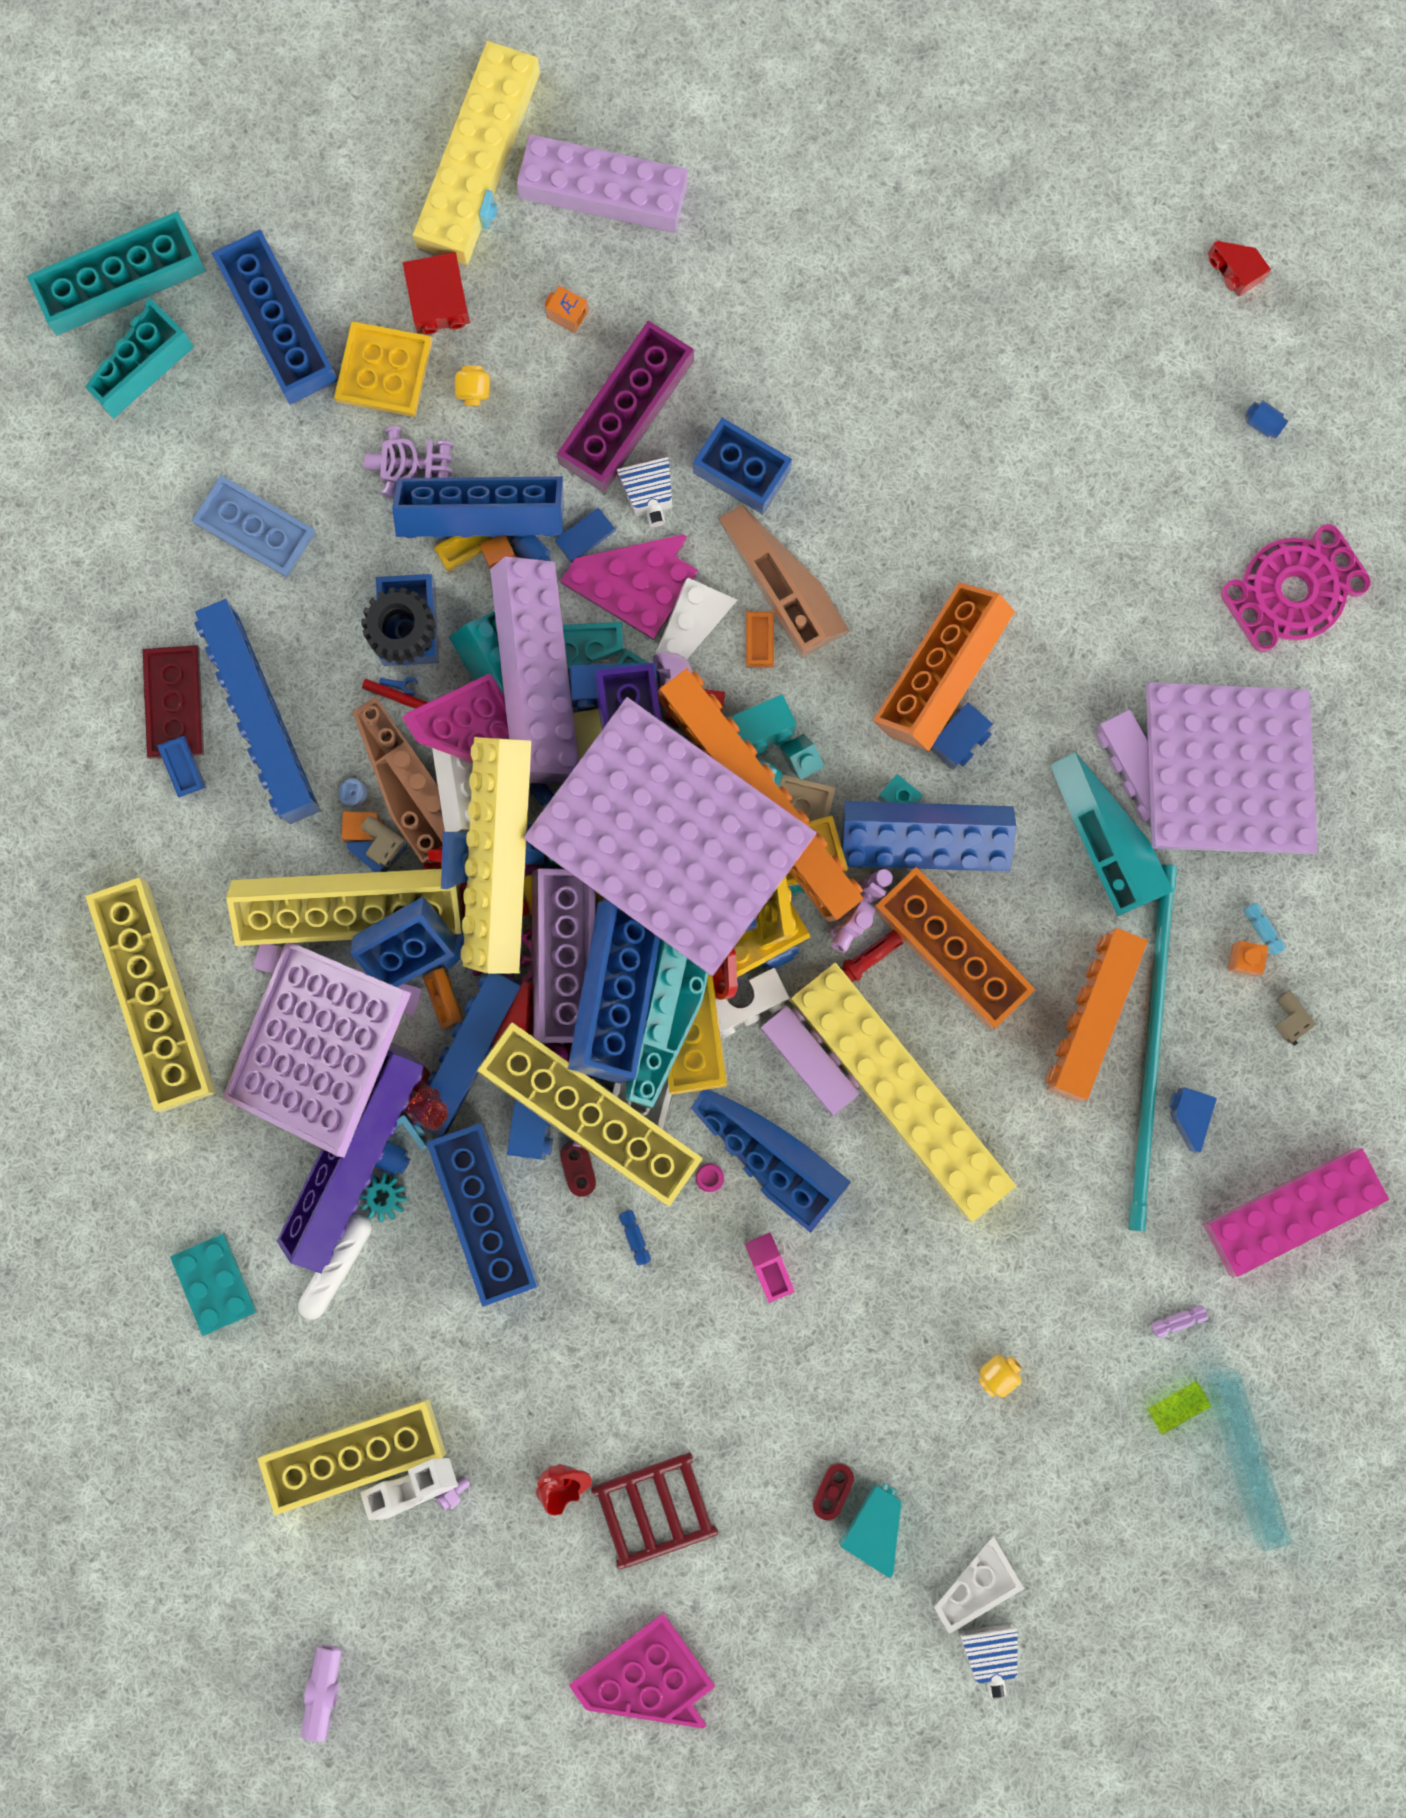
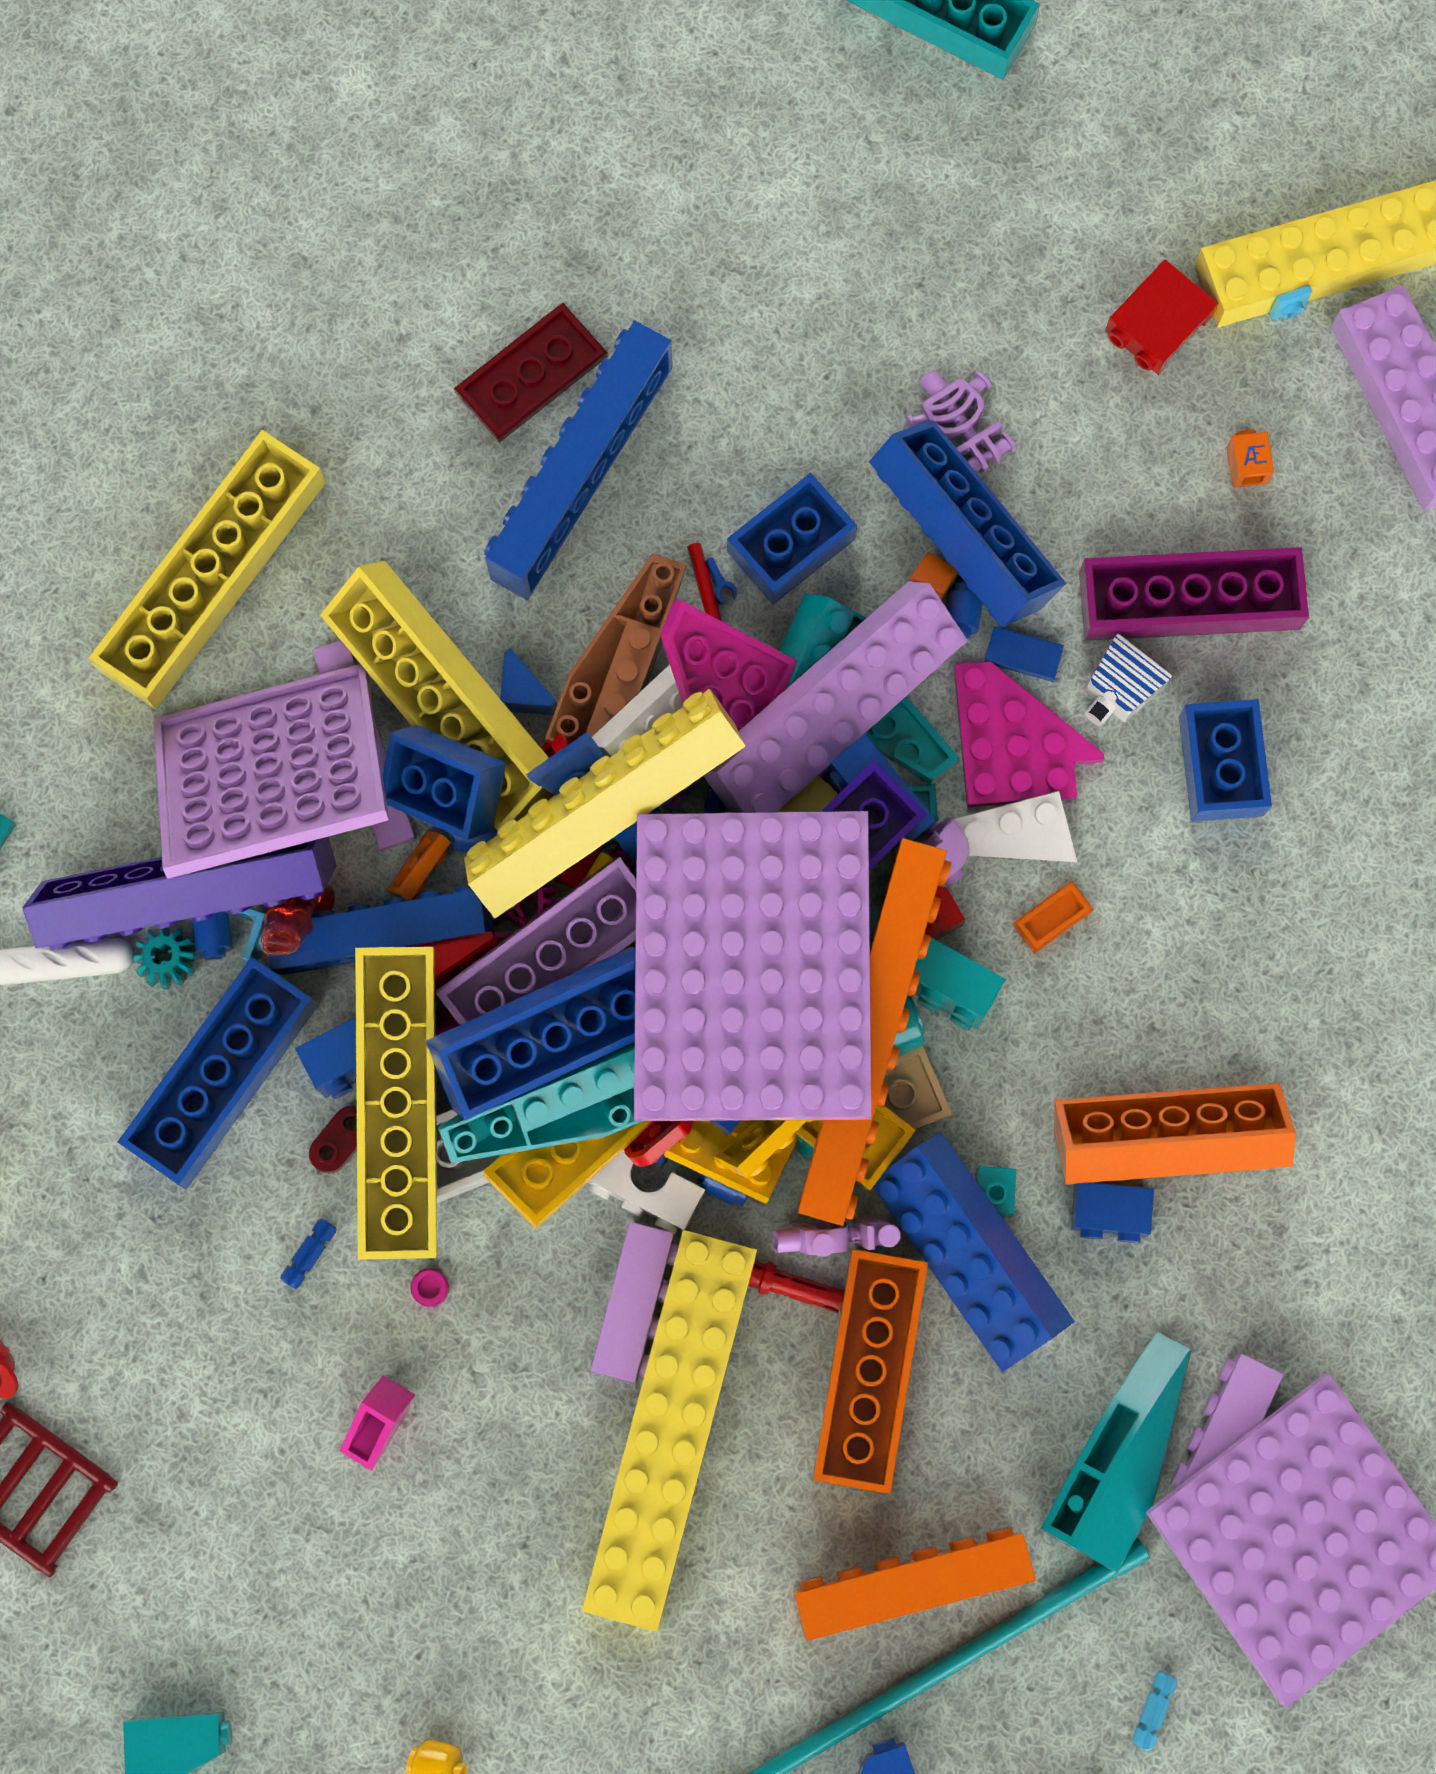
camera: 55 degrees right, 5 degrees down
(139, 359) = (856, 81): teal wedge -> none
(181, 766) = (469, 428): blue tile -> none
(253, 526) = (773, 317): medium blue plate -> none
(275, 317) = (1006, 178): blue brick -> none
(352, 826) = (539, 652): orange brick -> none
(353, 792) = (569, 617): light blue tile -> none
(383, 369) = (1039, 324): yellow plate -> none
(386, 842) = (536, 687): dark tan piece -> none
(389, 605) = (779, 503): black tyre -> none
(459, 550) = (906, 538): yellow tile -> none
(472, 385) = (1092, 423): yellow head -> none
(782, 1164) = (499, 1358): blue wedge -> none
(786, 584) = (1134, 900): nougat wedge -> none
(802, 756) = (958, 1053): teal brick -> none
(833, 1490) = (182, 1671): dark red plate -> none
(1248, 958) = (1105, 1715): orange brick -> none

